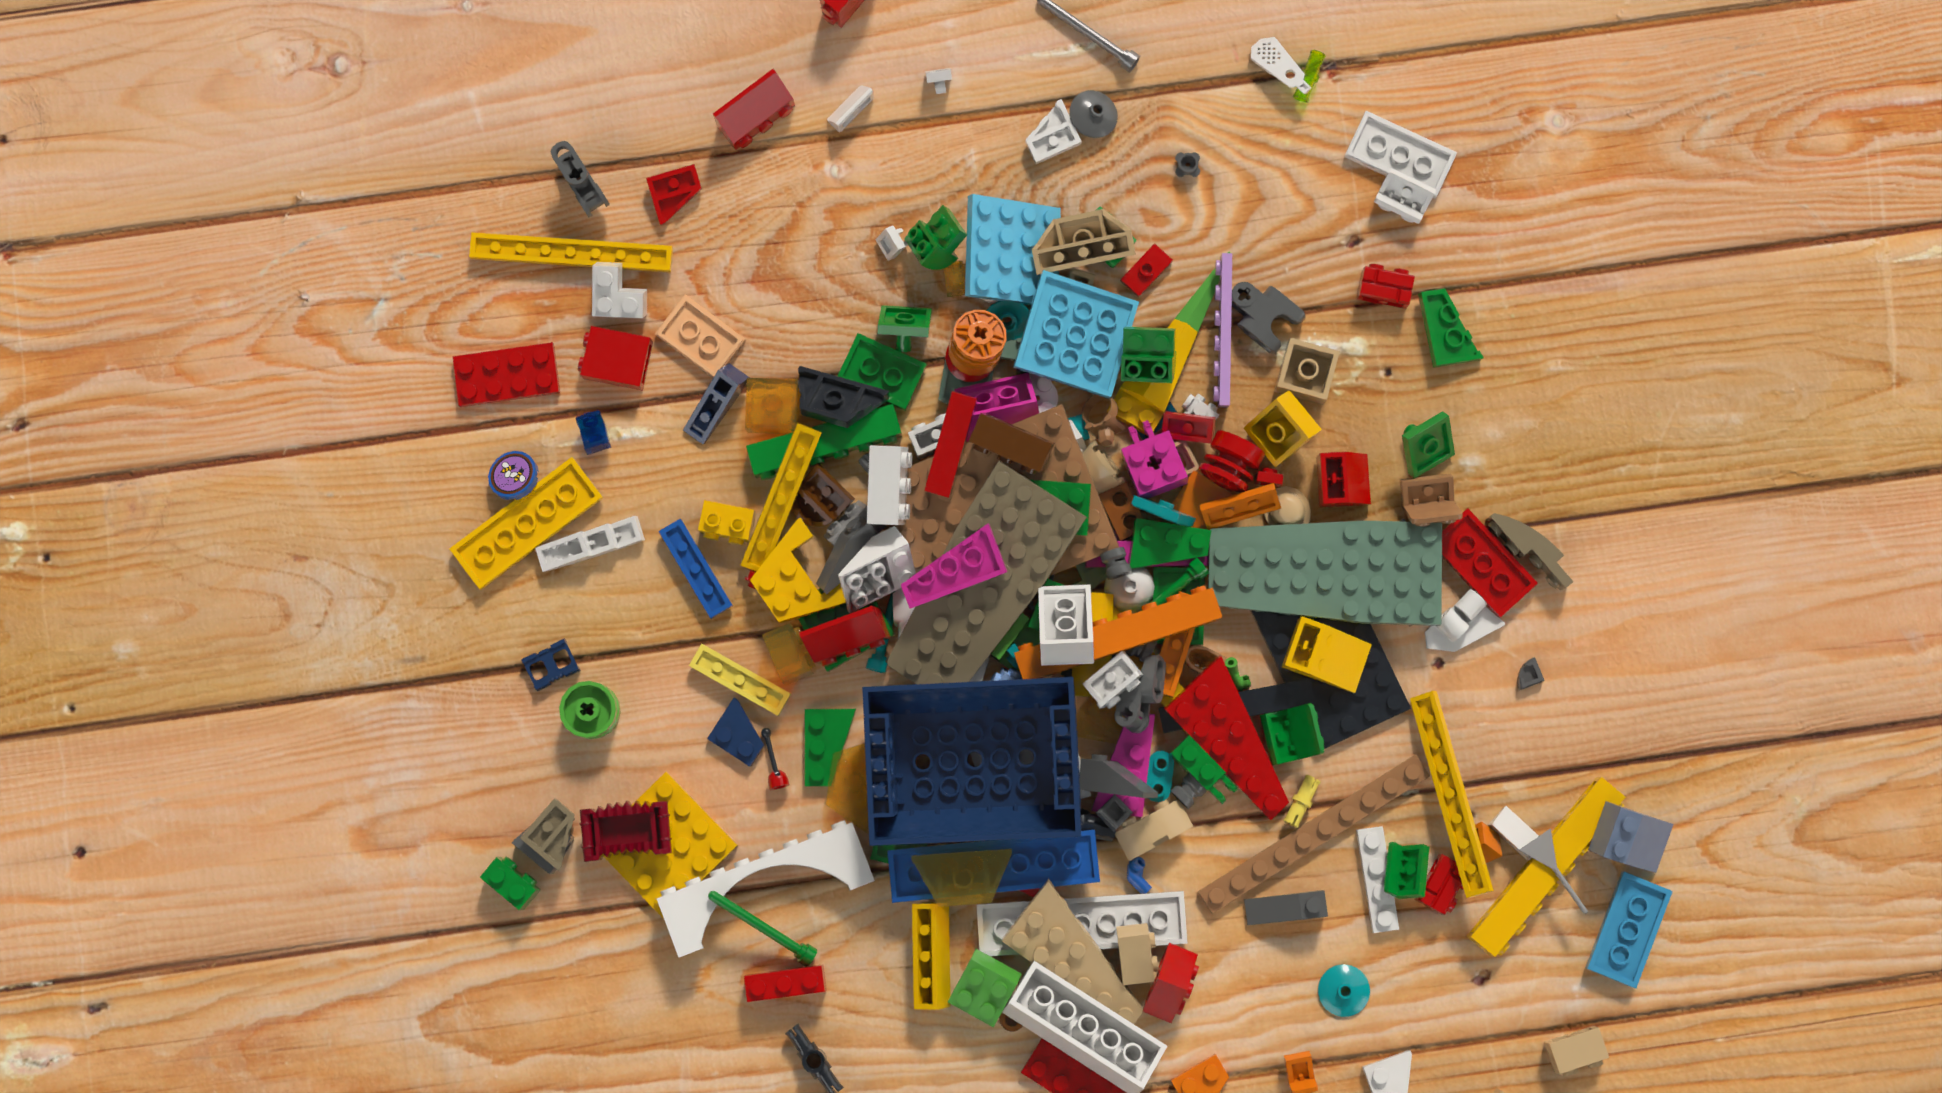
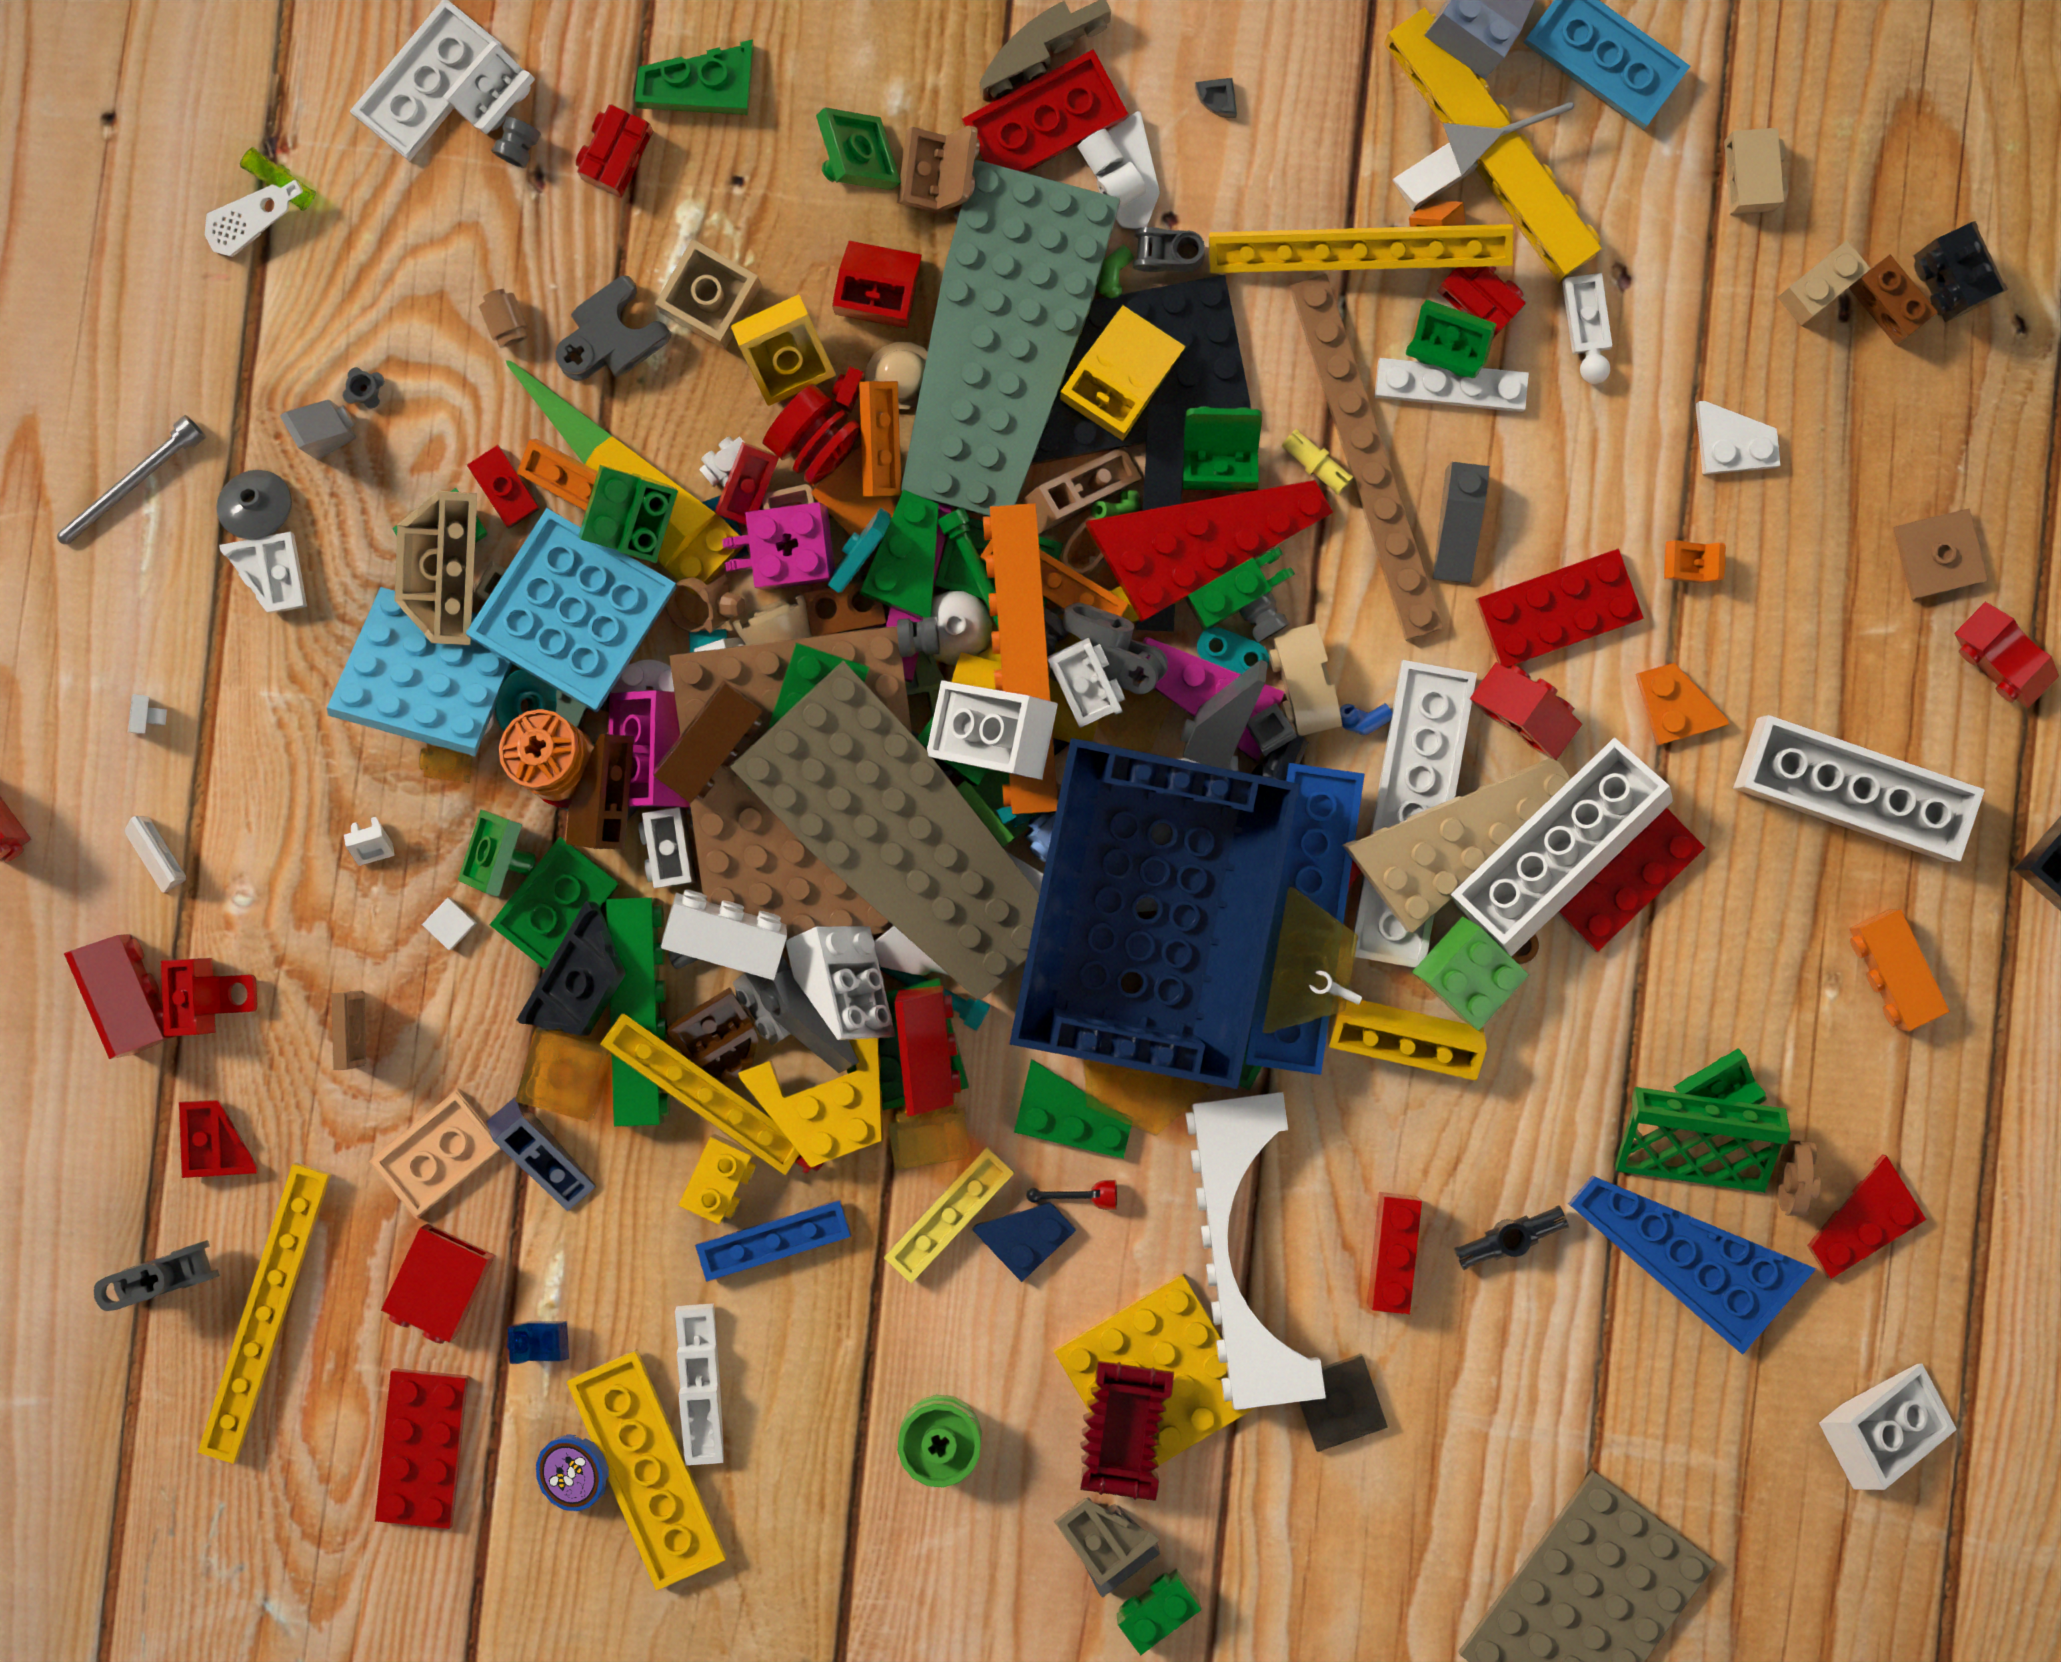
camera: 75 degrees left, 5 degrees up
(554, 672) = (871, 1479): dark blue piece -> none
(610, 298) = (345, 1272): white brick -> none
(675, 976) = (1349, 1405): none -> clear smoke plate
(765, 157) = (194, 996): none -> red piece
(767, 260) = (348, 1030): none -> medium nougat tile
(804, 953) = (1358, 1215): green piece -> none
(852, 307) = (449, 923): none -> white tile
(936, 240) = (381, 776): green brick -> none
(944, 379) = (602, 797): none -> reddish brown slope
(950, 444) = (687, 830): red tile -> none
(951, 896) = (1336, 989): none -> white hand
(963, 566) = (871, 860): dark pink wing -> none
(1135, 954) = (1475, 749): tan brick -> none
(1153, 143) = (319, 427): none -> light grey slope
(1164, 303) = (557, 473): none -> orange plate
(1223, 319) = (603, 394): lavender plate -> none
(1242, 647) = (1081, 488): none -> medium nougat slope
(1245, 990) = (1559, 608): none -> red plate
(1256, 243) = (503, 318): none -> medium nougat brick
(1330, 990) = (1579, 485): teal dish -> none
(1374, 222) = (516, 142): none -> dark grey wheel
(1388, 631) = (1109, 273): none -> bright green arm
(1416, 664) = (1164, 250): none -> dark grey piece
(1442, 962) = (1588, 324): none -> white plate

